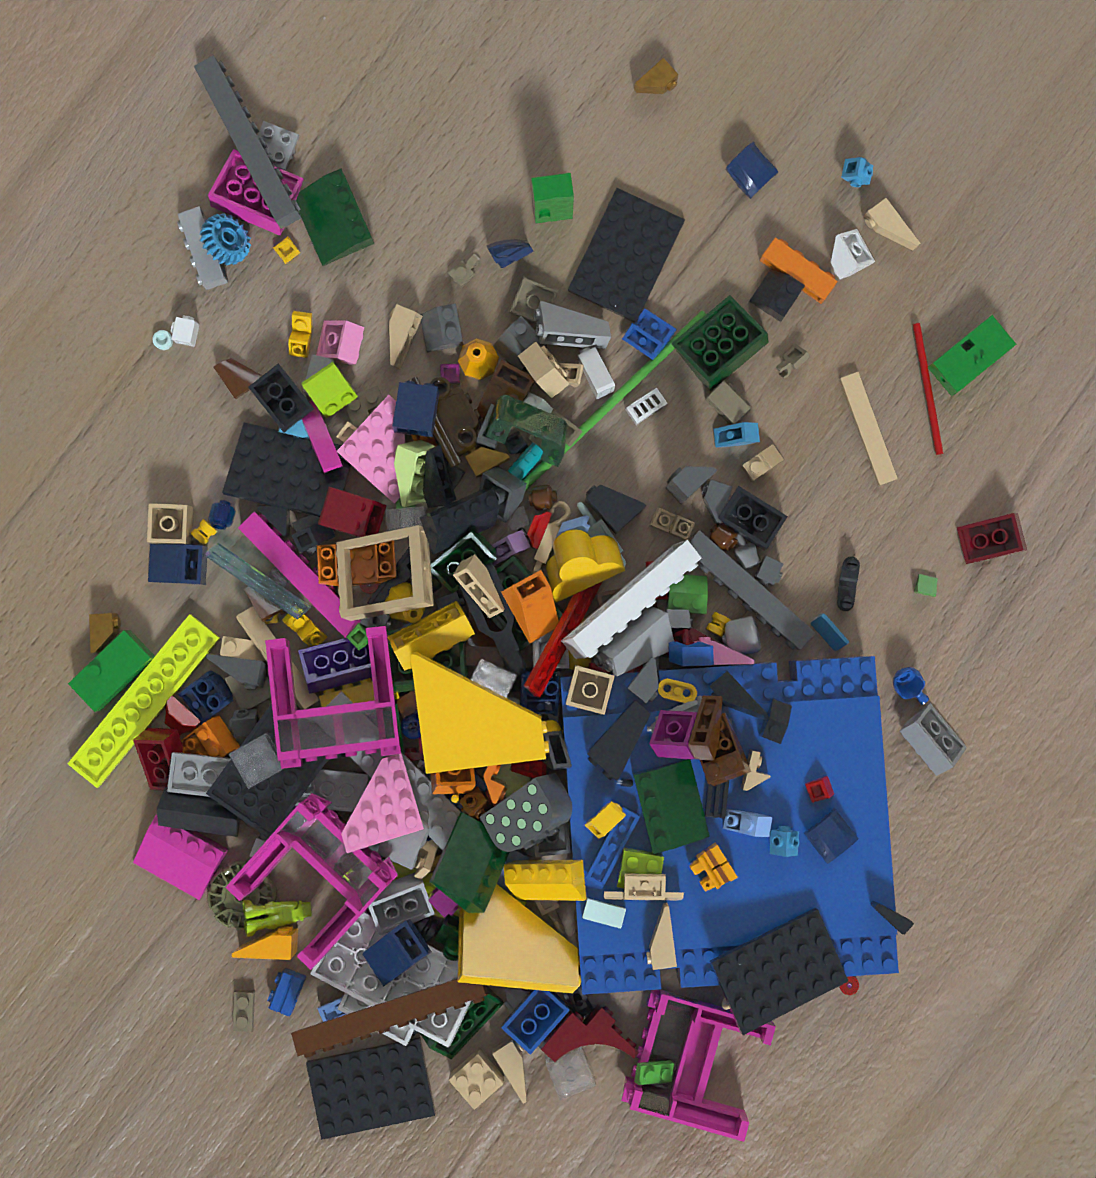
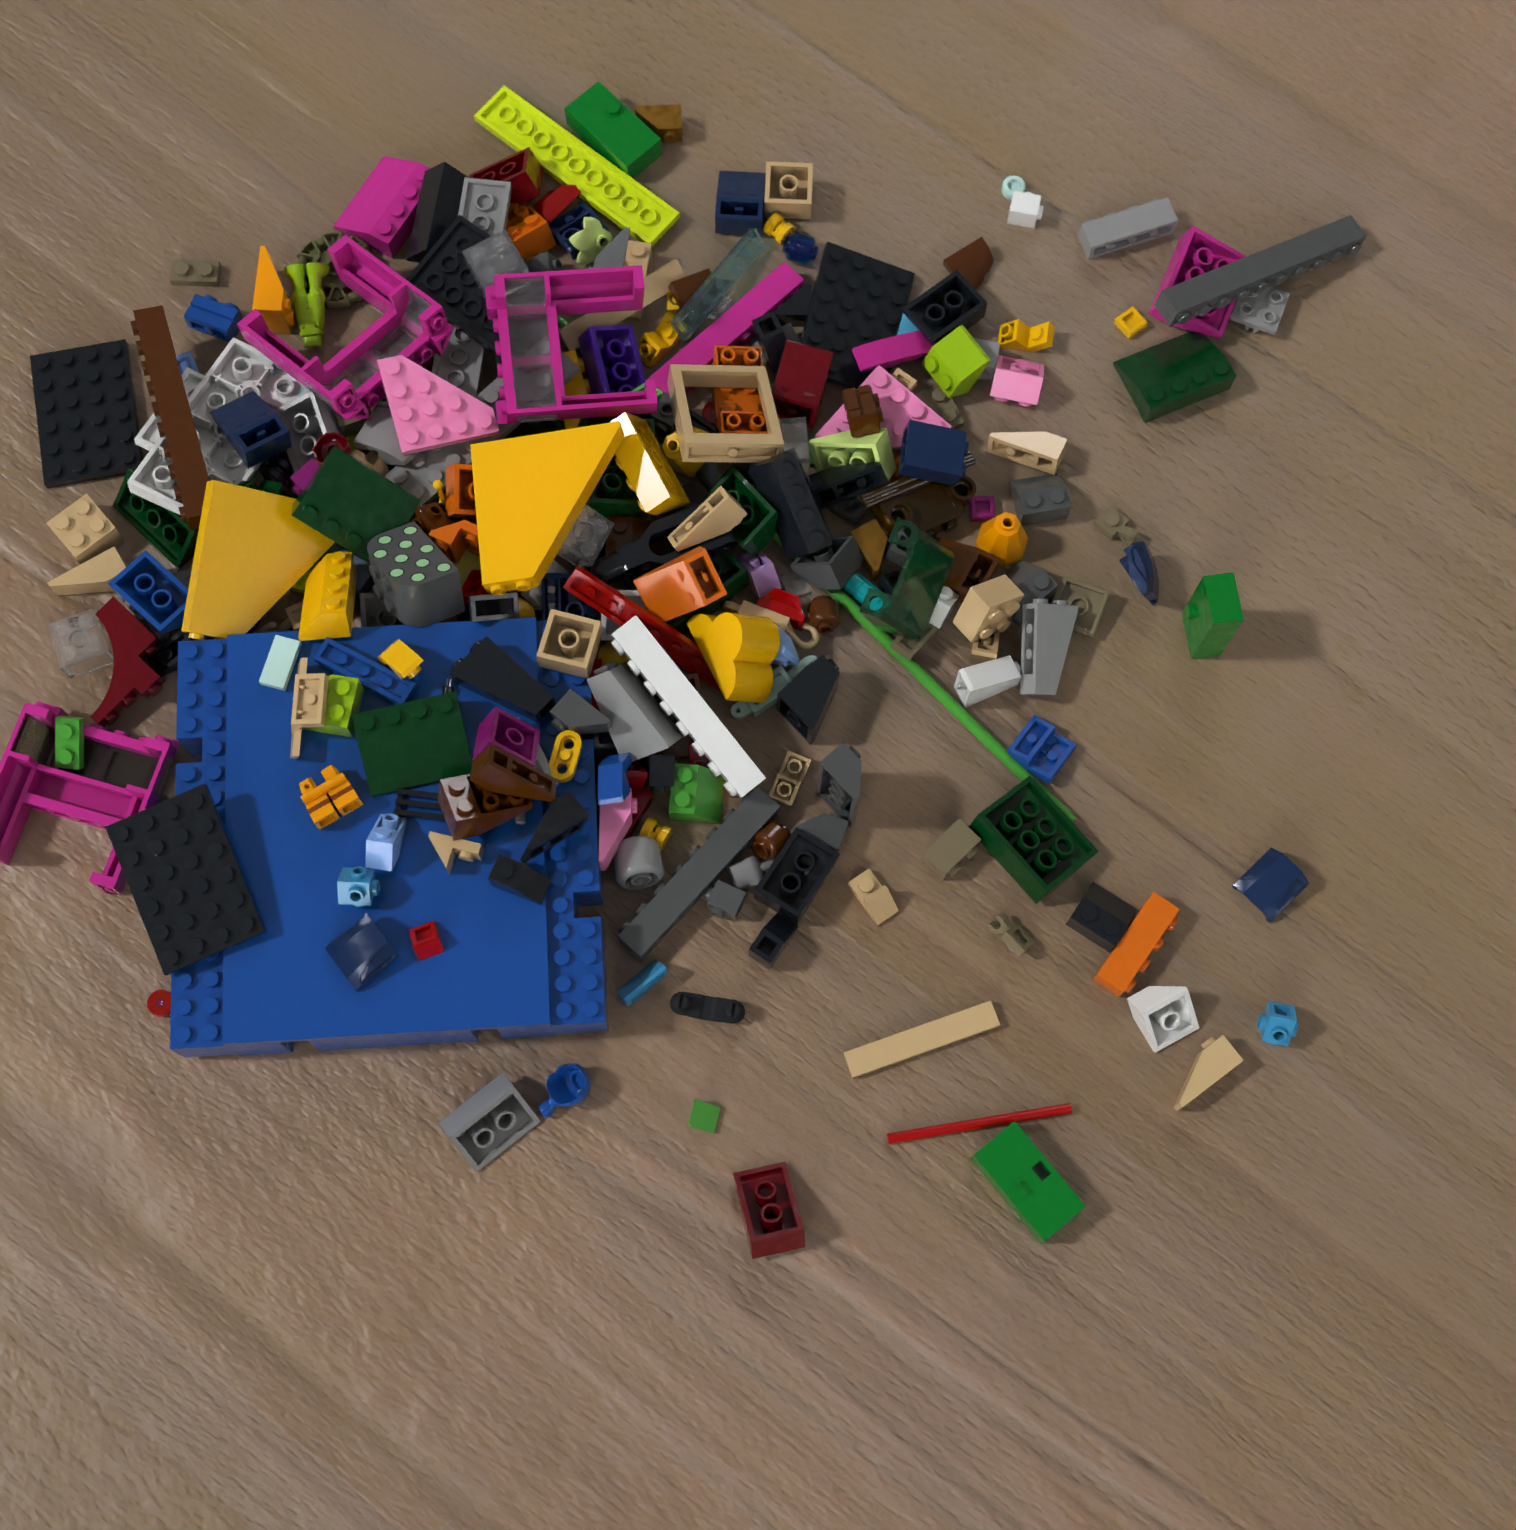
camera: 85 degrees right, 15 degrees down
(220, 685) = (588, 240): none -> yellowish green plate
(225, 239) = (1152, 238): dark azure gear -> none
(383, 464) = (862, 410): none -> reddish brown brick
(420, 885) = (326, 443): none -> dark red hair
(626, 255) = (1146, 724): black plate -> none
(634, 416) = (952, 741): white slope -> none
(657, 79) = (1383, 761): pearl gold slope -> none
(662, 945) = (230, 732): tan slope -> none
(736, 434) = (909, 861): dark azure slope -> none
(799, 535) = (772, 940): none -> black slope
(897, 920) = (242, 1035): black slope -> none

